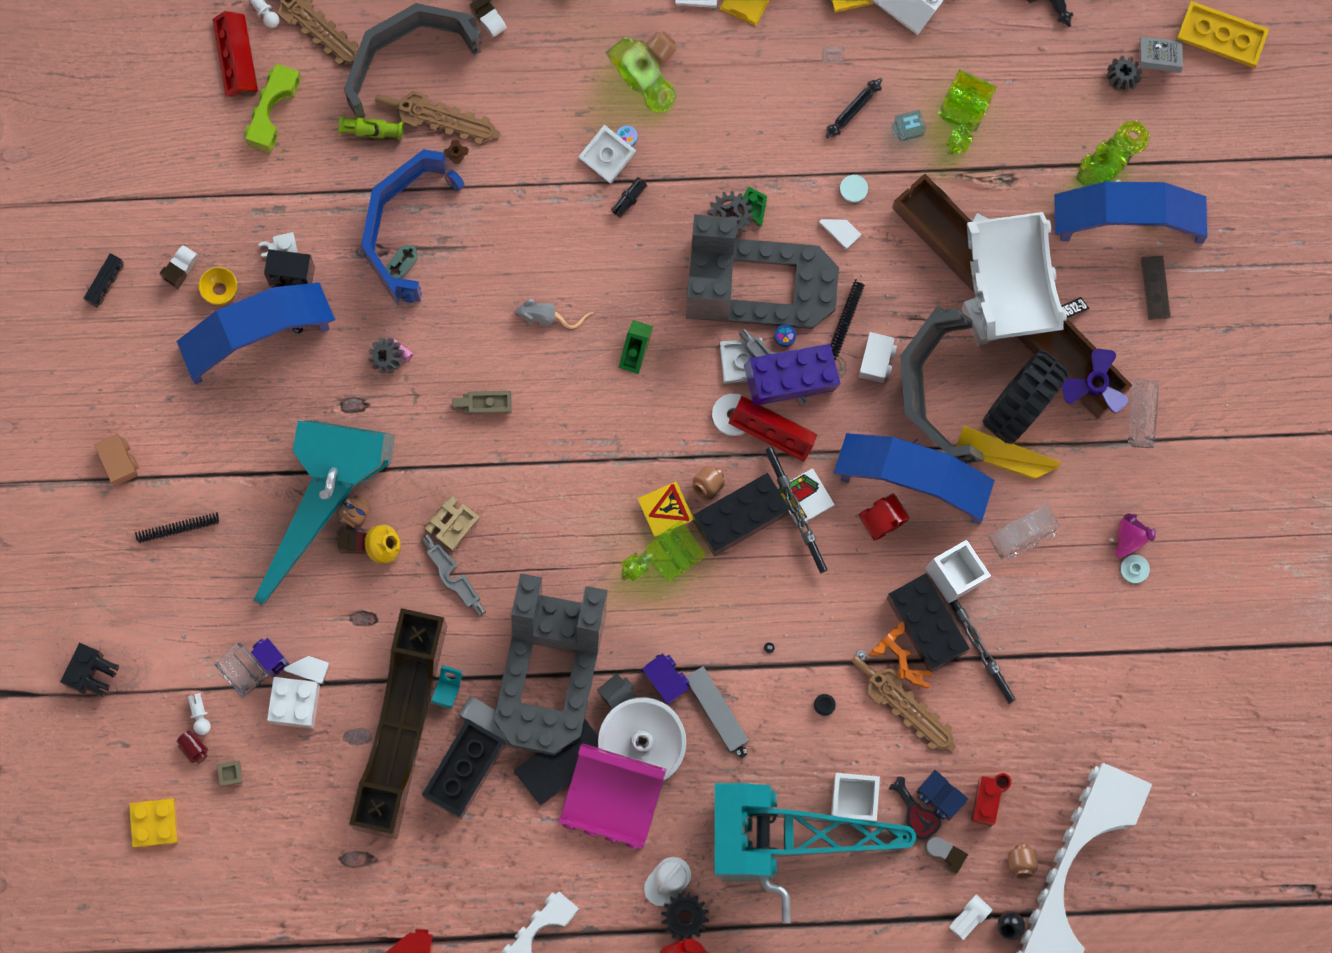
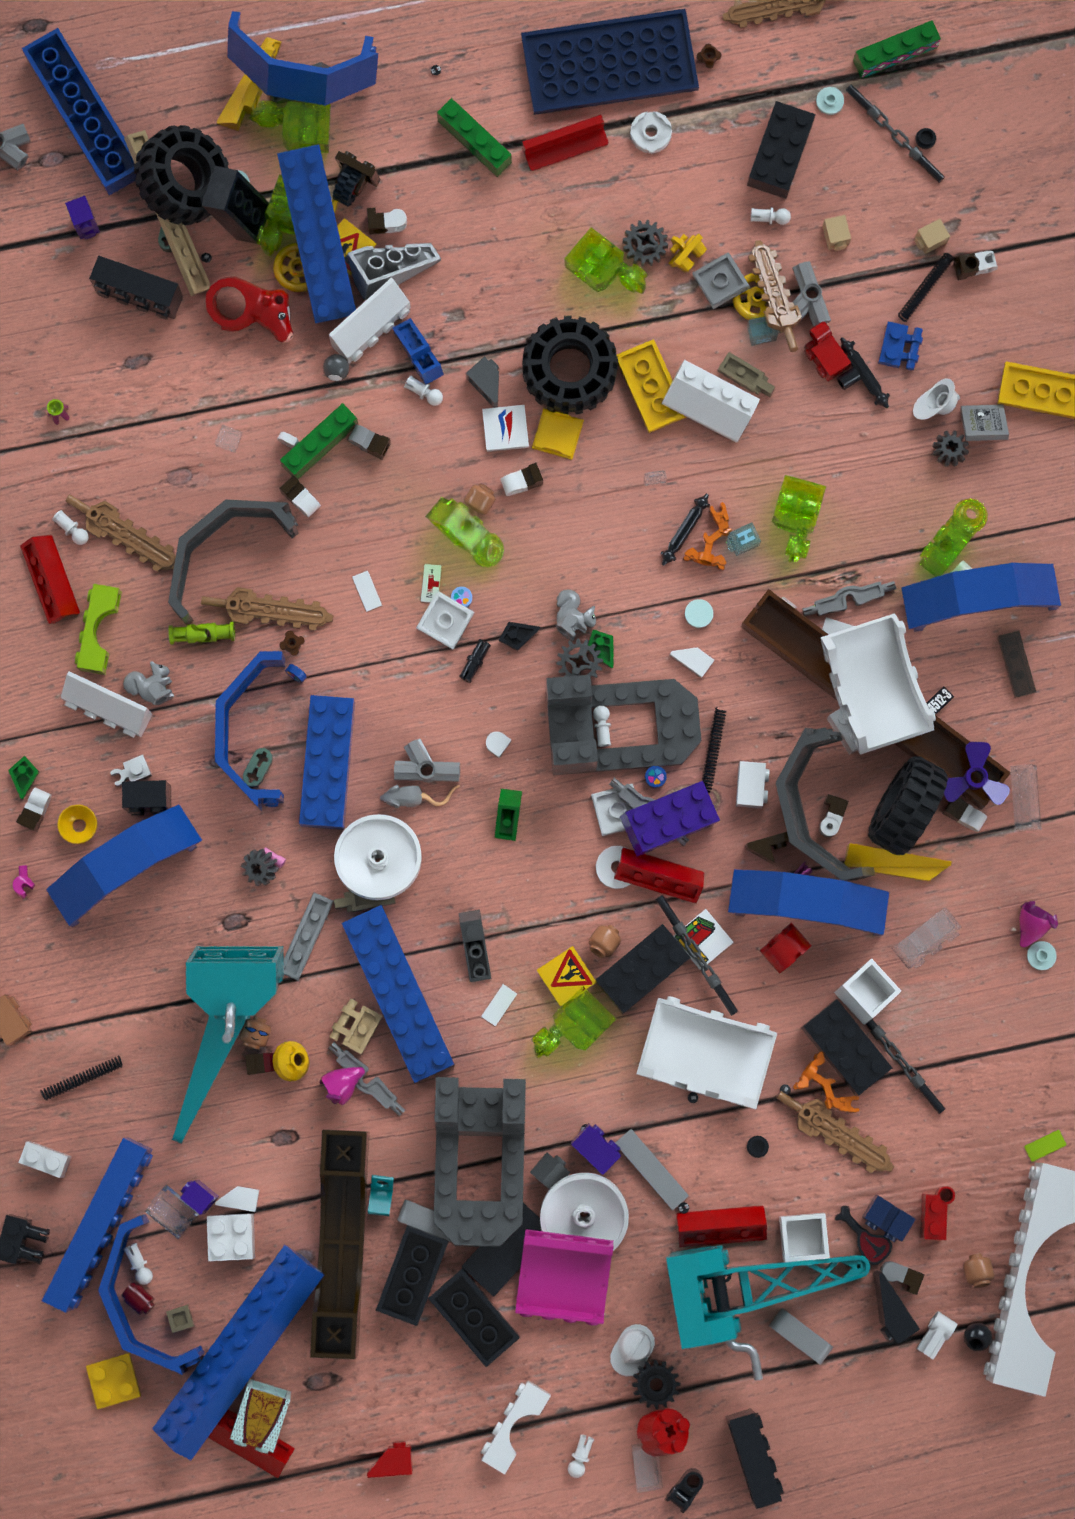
camera: 10 degrees left, 5 degrees up
(127, 597) = (45, 1159): none -> white brick
(155, 332) = (22, 881): none -> dark pink piece
(164, 728) = (117, 1315): none -> blue panel
(166, 667) = (97, 1225): none -> blue brick
(175, 232) = (23, 776): none -> green piece
(266, 178) = (105, 704): none -> white slope
(273, 903) = (270, 1462): none -> red panel
(279, 813) = (237, 1352): none -> blue brick
(290, 879) = (260, 1416): none -> slope
(313, 171) = (150, 689): none -> light grey animal
(419, 429) = (306, 935): none -> light grey tile
(427, 573) = (341, 1083): none -> dark pink hat
(469, 268) = (327, 762): none -> blue brick
(498, 497) = (398, 994): none -> blue brick
(502, 364) = (373, 839): none -> white dish
(517, 820) = (474, 1317): none -> black brick
(537, 116) = (367, 591): none -> white sticker
(560, 281) = (420, 759): none -> light grey piece
(581, 466) = (474, 945): none -> dark grey slope
(595, 527) = (499, 1005): none -> white sticker
(600, 117) = (431, 582): none -> white sticker
(637, 278) = (497, 743): none -> white tile
(675, 179) = (517, 634): none -> black piece
(704, 36) = (522, 480): none -> leg
(728, 172) = (571, 619): none -> light grey animal
(741, 267) = (601, 714): none -> white pin
(781, 775) = (722, 1226): none -> red panel
(789, 604) = (707, 1053): none -> white panel
(836, 895) = (801, 1336): none -> light grey beam
(869, 137) = (706, 558): none -> orange piece
(877, 418) = (762, 847): none -> dark brown slope
(931, 887) = (893, 1315): none -> black slope
(947, 408) = (834, 815): none -> leg
(1013, 197) = (859, 594): none -> light grey piece
(1081, 420) = (965, 814): none -> leg
(1108, 753) = (1045, 1145): none -> lime sticker
(1118, 27) = (937, 400): none -> white piece

